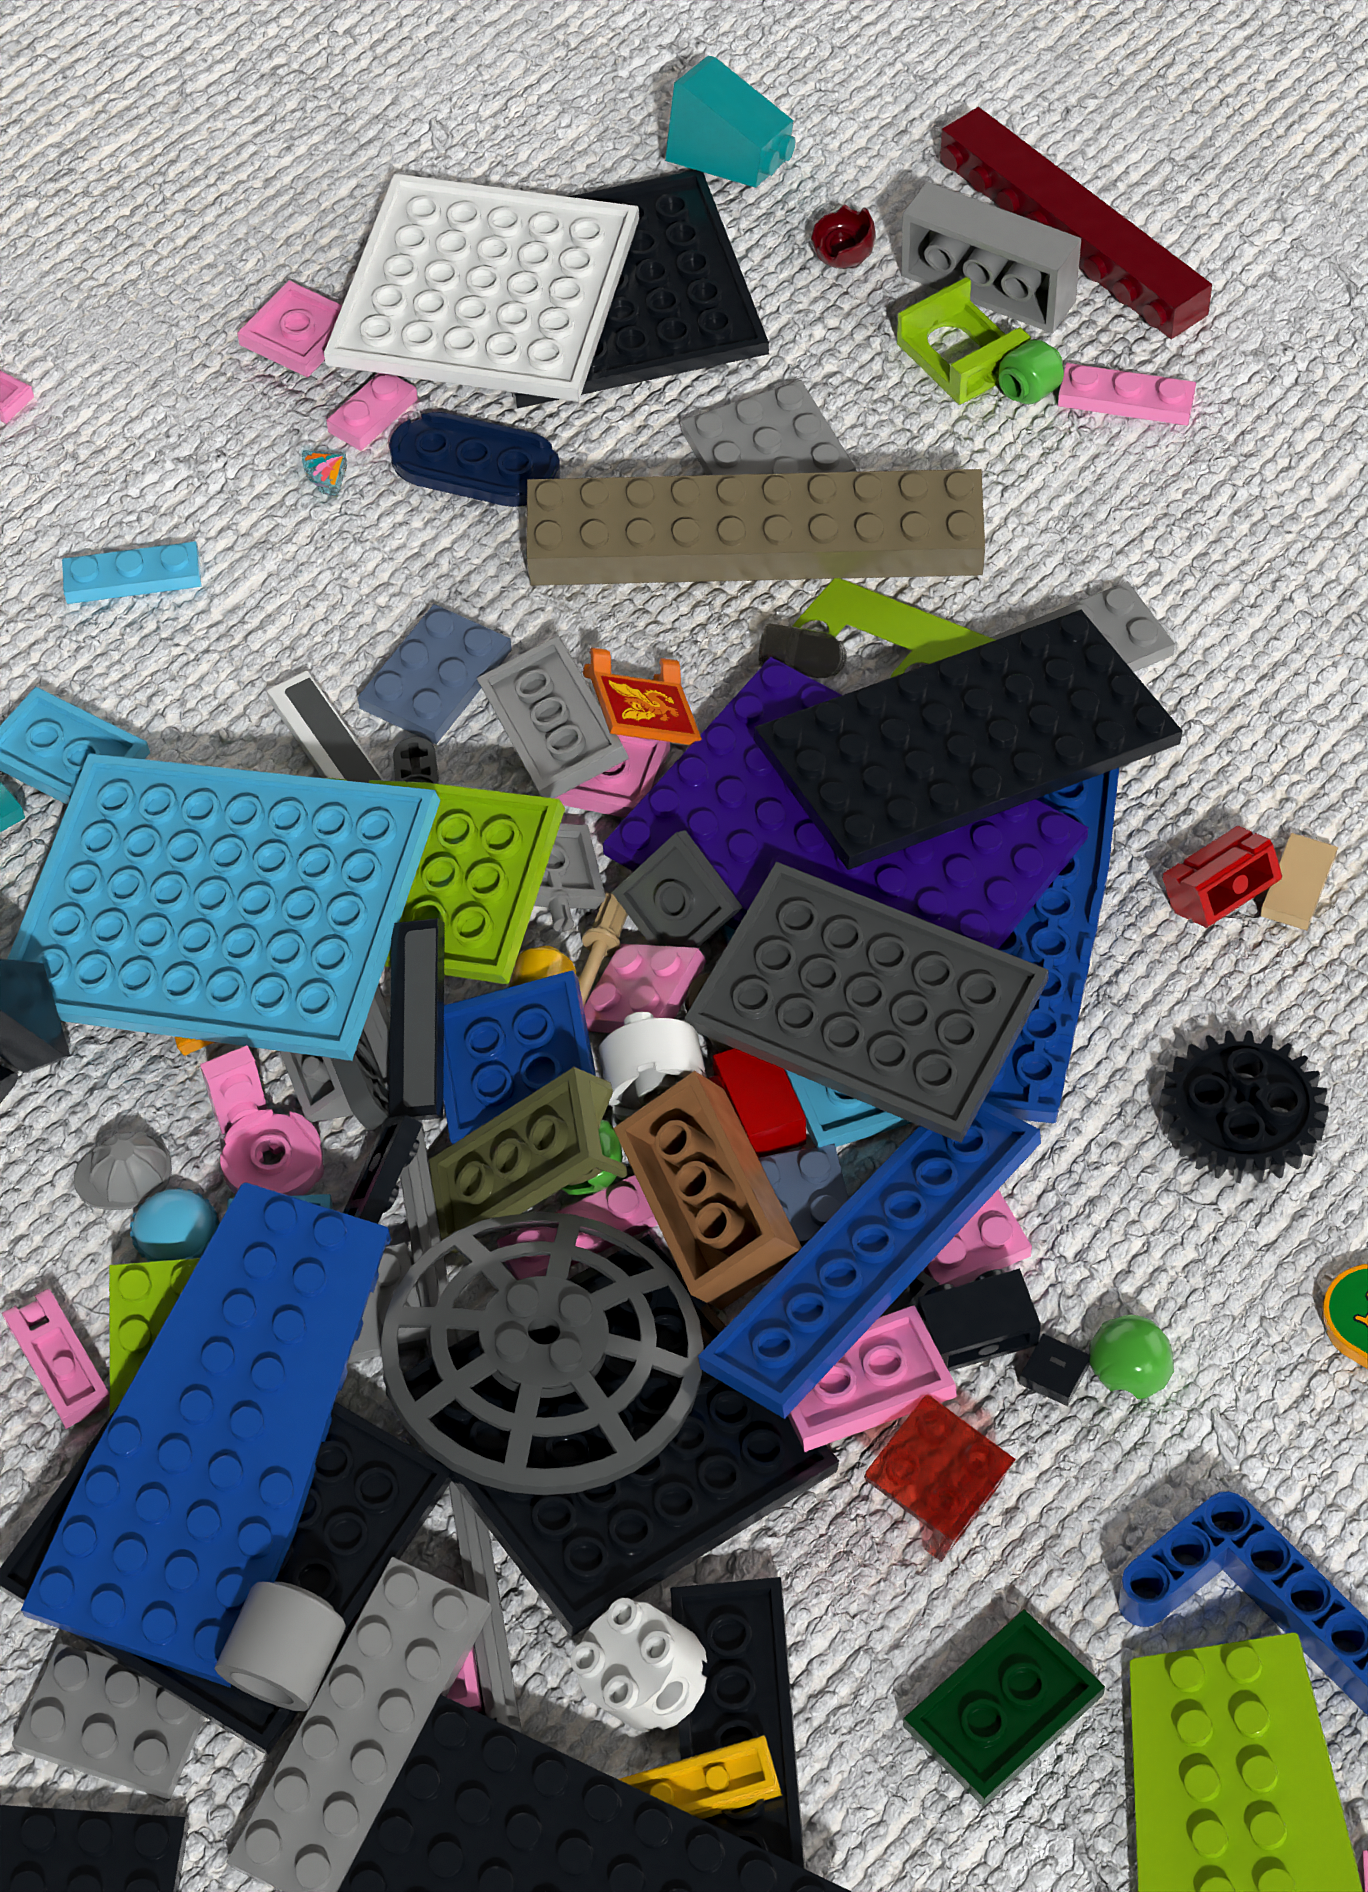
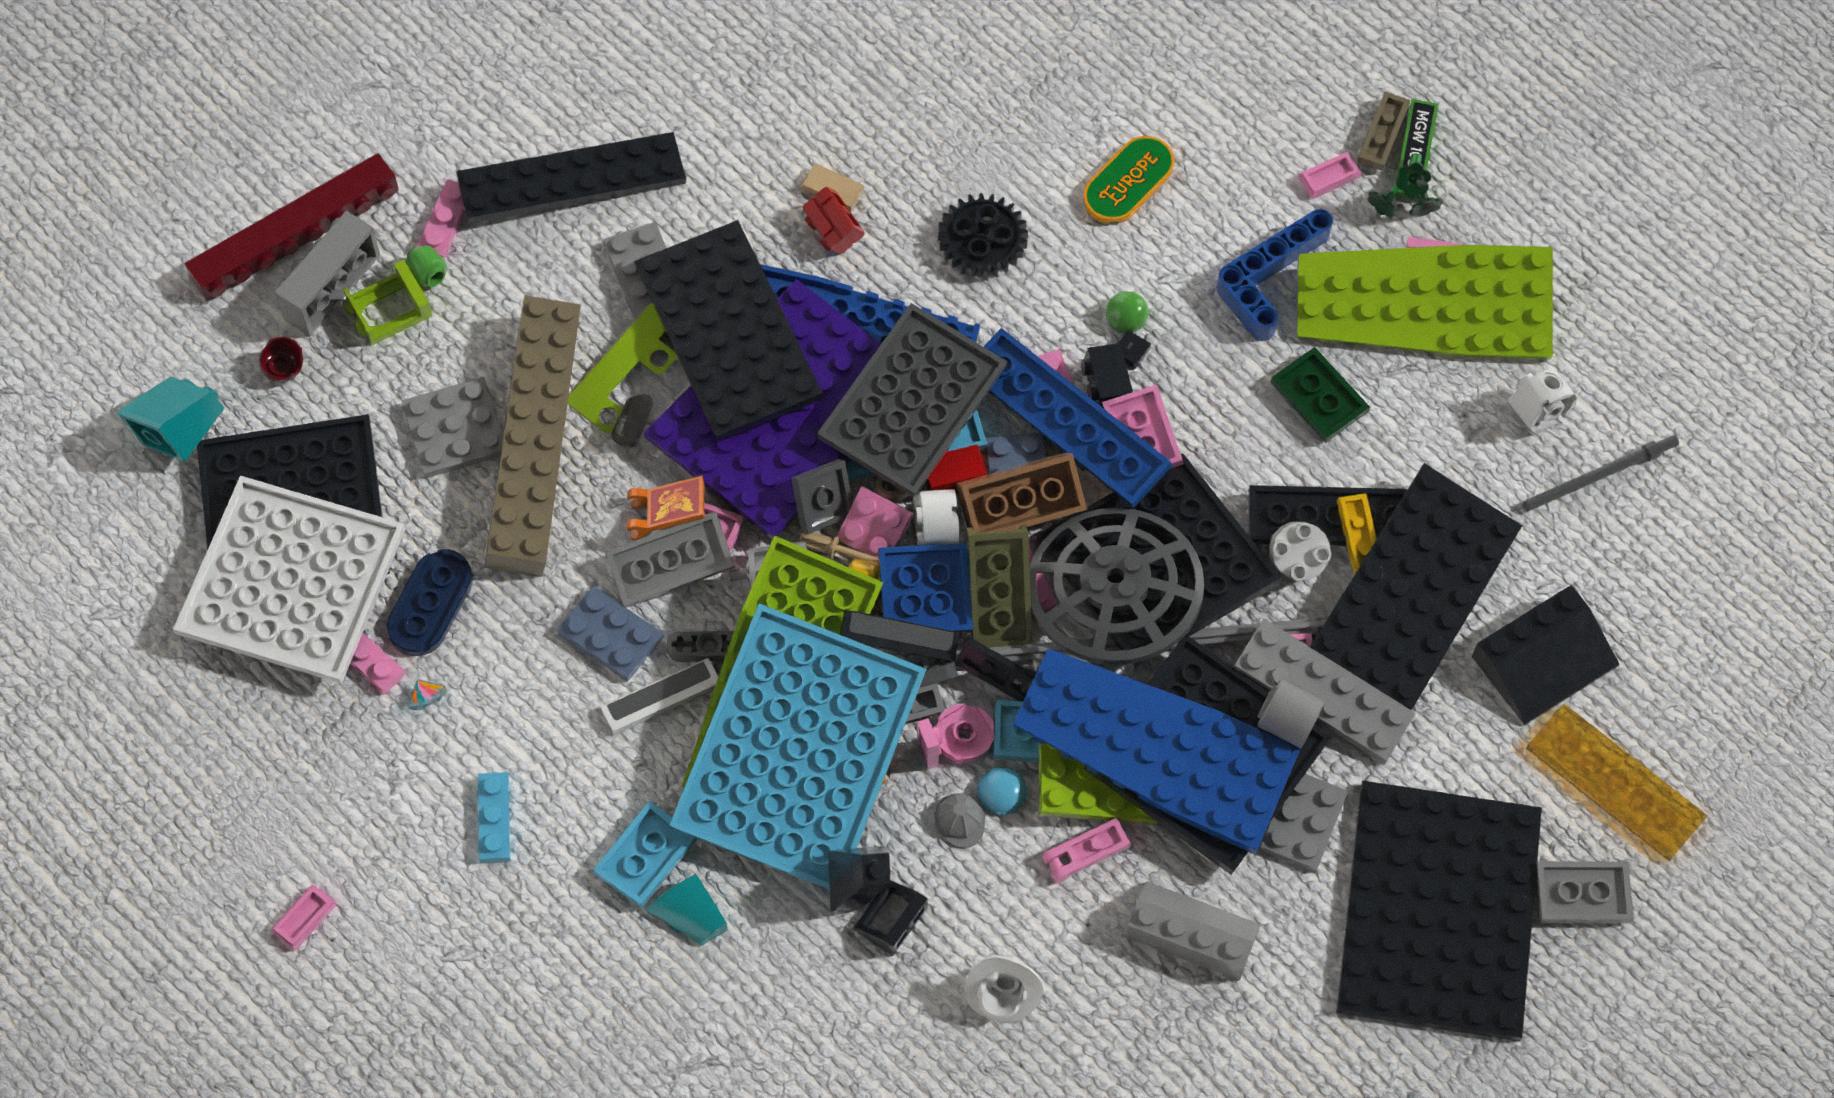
camera: 90 degrees left, 10 degrees up
(292, 328) = (292, 706): bright pink plate -> none
(939, 1472) = (1202, 400): clear red bracket -> none
(1234, 531) = (570, 177): none -> black plate

